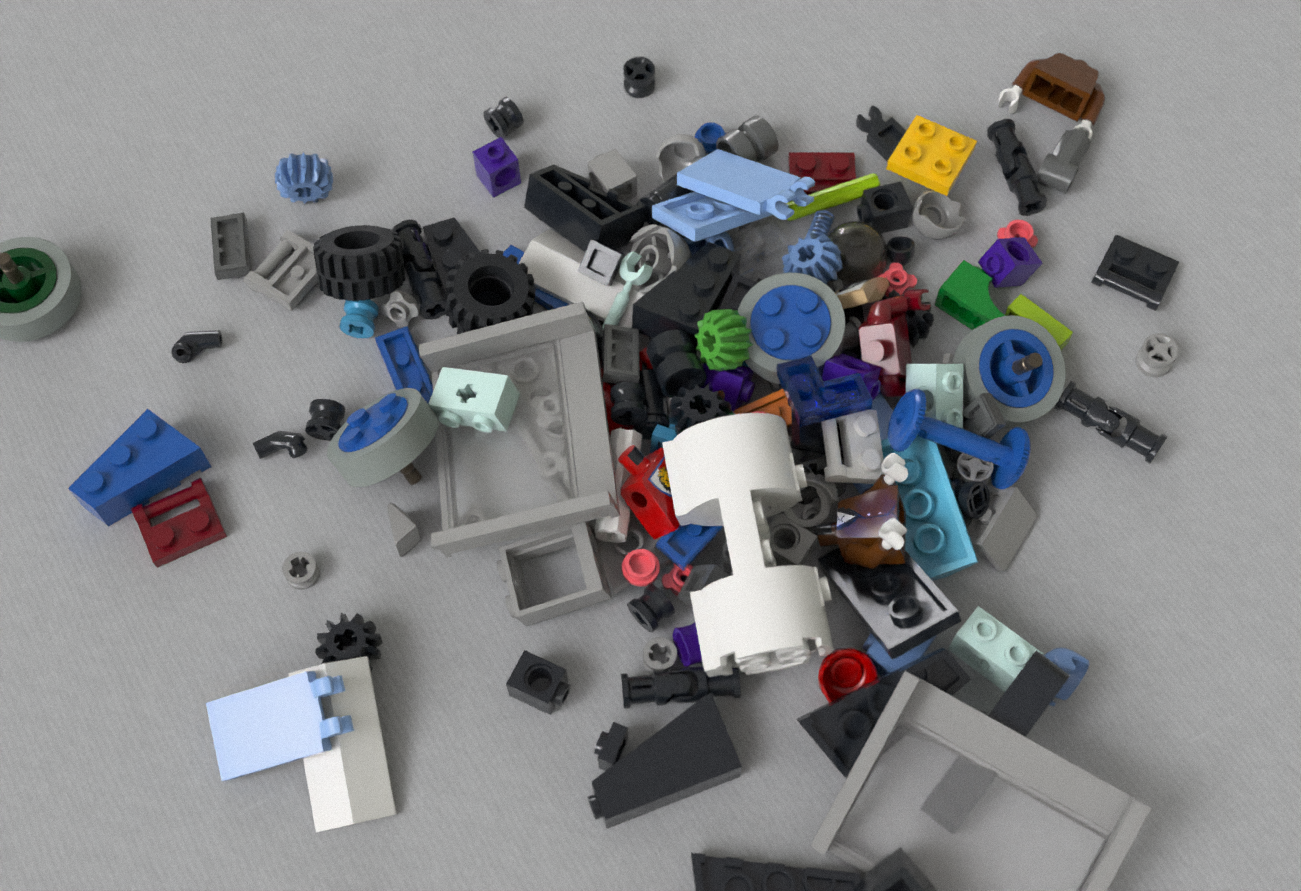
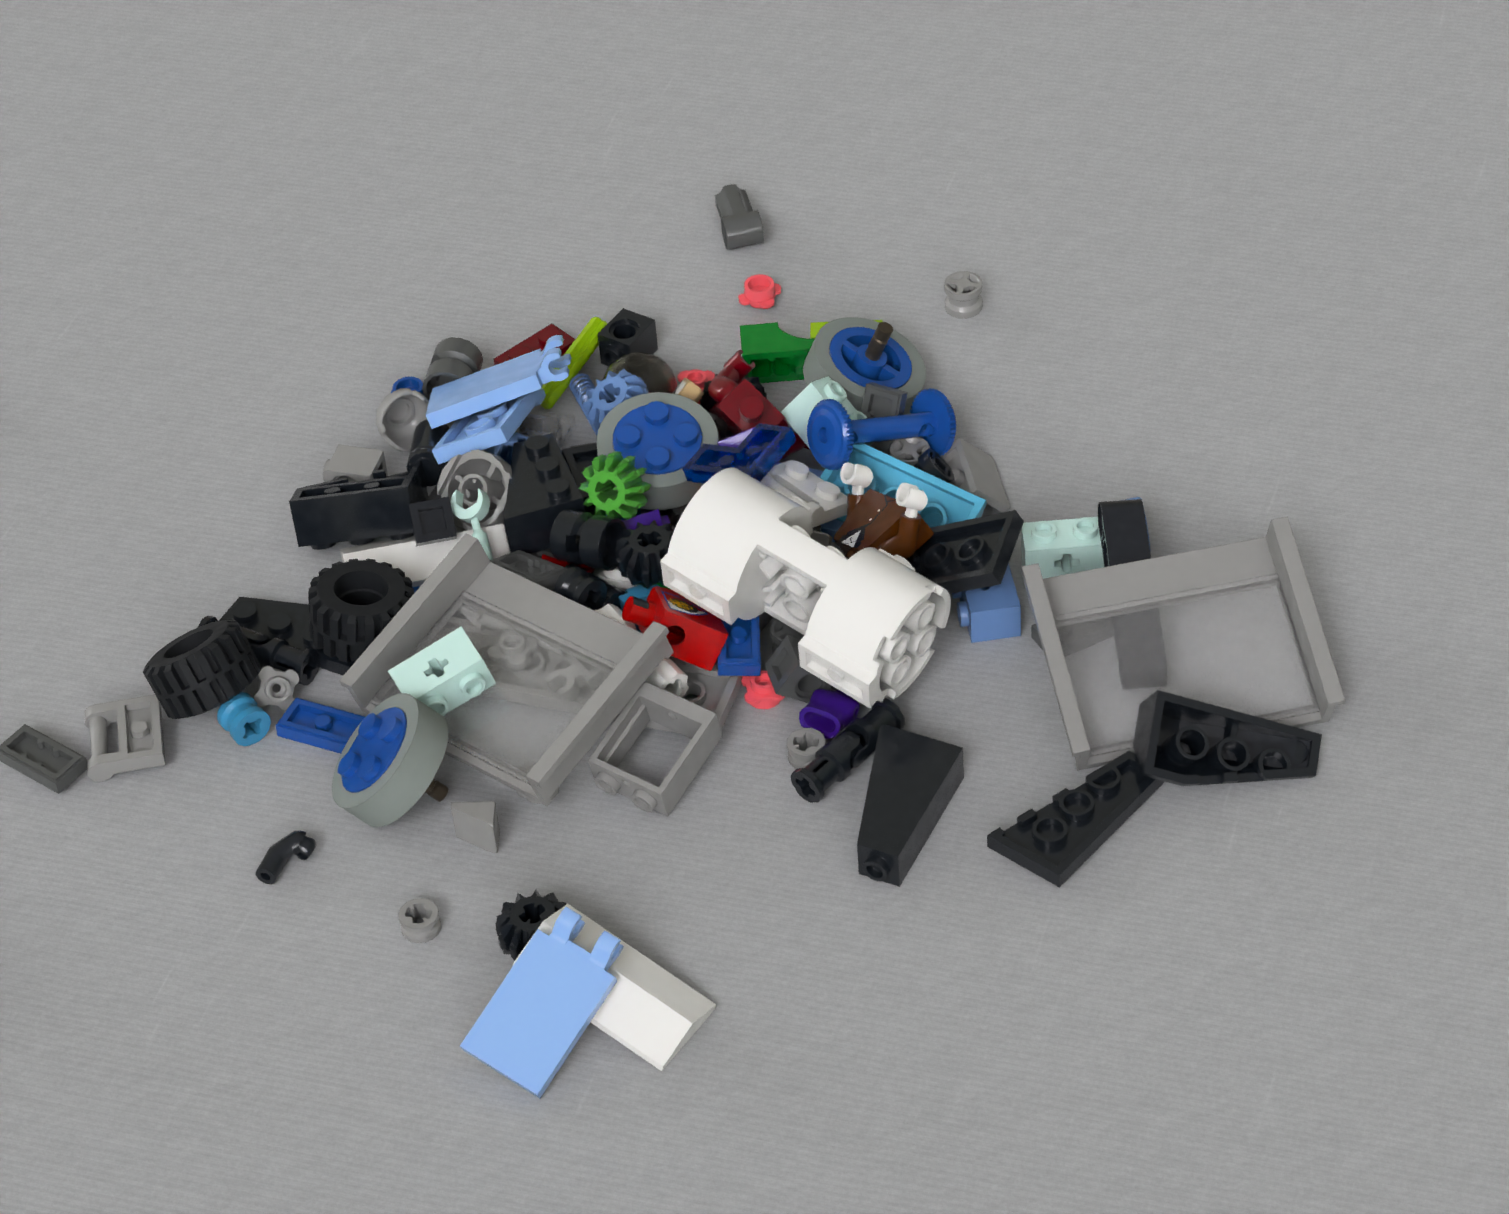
camera: 40 degrees left, 20 degrees down
(137, 467) = (172, 952): blue wedge -> none
(183, 532) = (269, 980): dark red plate -> none
(193, 343) = (98, 849): black arm -> none
(303, 177) = (58, 656): medium blue gear -> none
(324, 418) = (307, 805): black wheel -> none
(497, 167) = (237, 533): dark purple brick -> none
(503, 117) = (194, 498): black wheel -> none
(527, 671) = (730, 831): black brick -> none
(611, 745) = (842, 823): black plate -> none
(639, 77) = (287, 393): black wheel -> none
(640, 567) = (723, 692): coral plate -> none
(651, 608) = (761, 720): black wheel -> none
(845, 672) = (974, 646): red hair -> none
(847, 722) = (1014, 662): black wing -> none
(882, 134) = (564, 296): black plate -> none
(901, 250) = (677, 358): black hinge -> none
(931, 155) = (627, 275): yellow plate -> none
(937, 215) = (678, 318): light grey hair -> none
(1010, 262) = (779, 304): dark purple brick -> none
(1016, 167) = (703, 246): black piece -> none
(1061, 85) = (674, 167): reddish brown torso -> none
(1097, 414) = (973, 358): black piece -> none
(1137, 265) = (881, 255): black plate -> none

